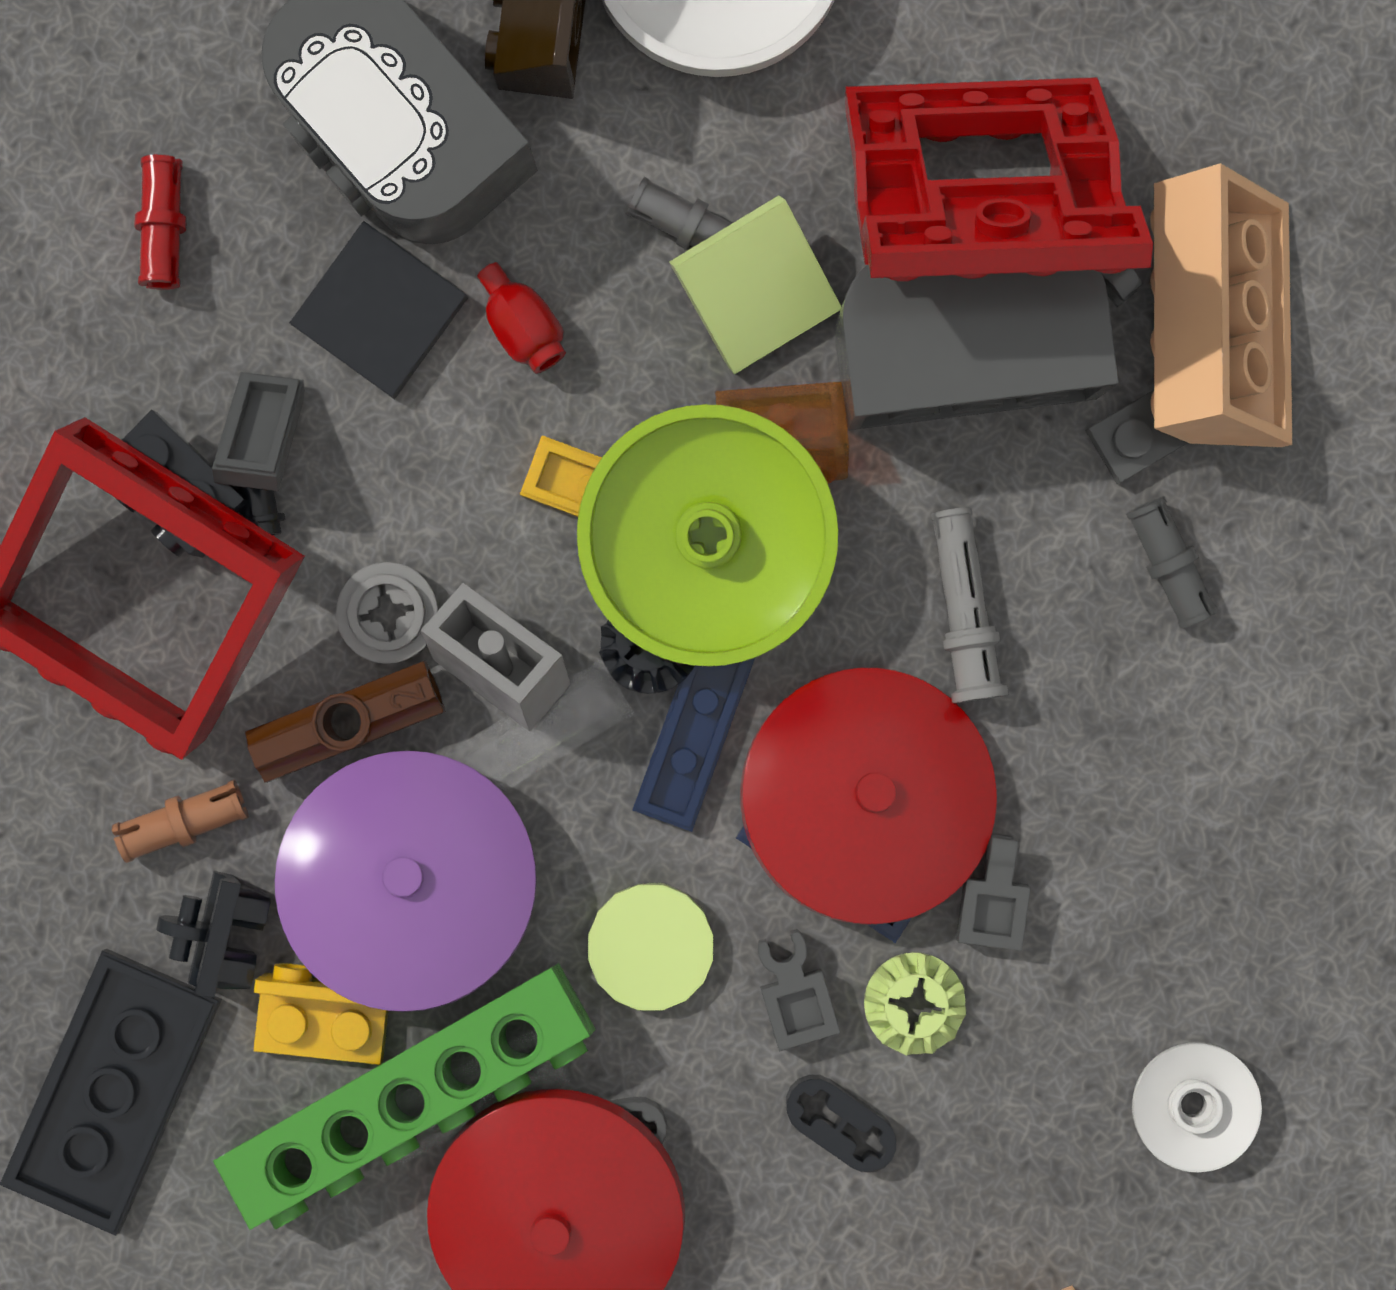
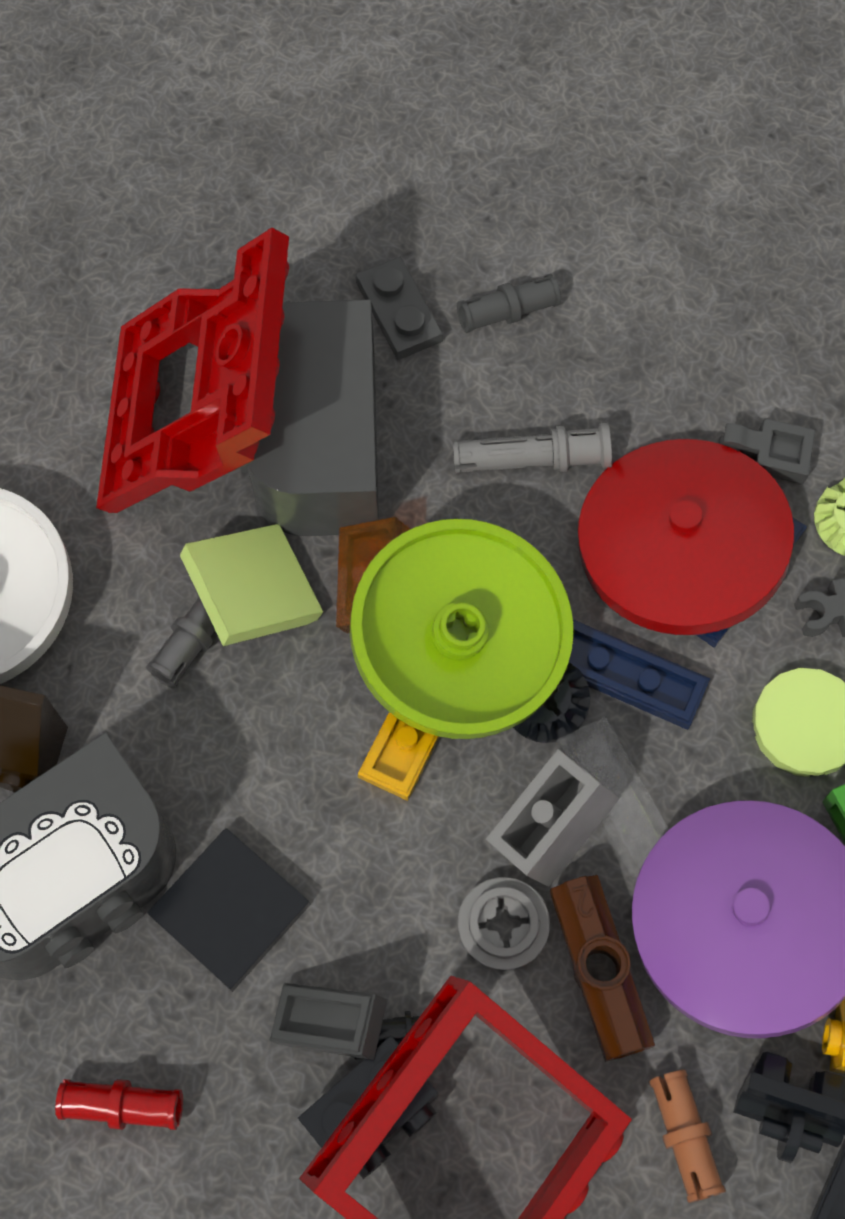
camera: 85 degrees left, 20 degrees down
(521, 320) = (255, 781): red plant -> none
(1221, 311) = (329, 247): light nougat slope -> none

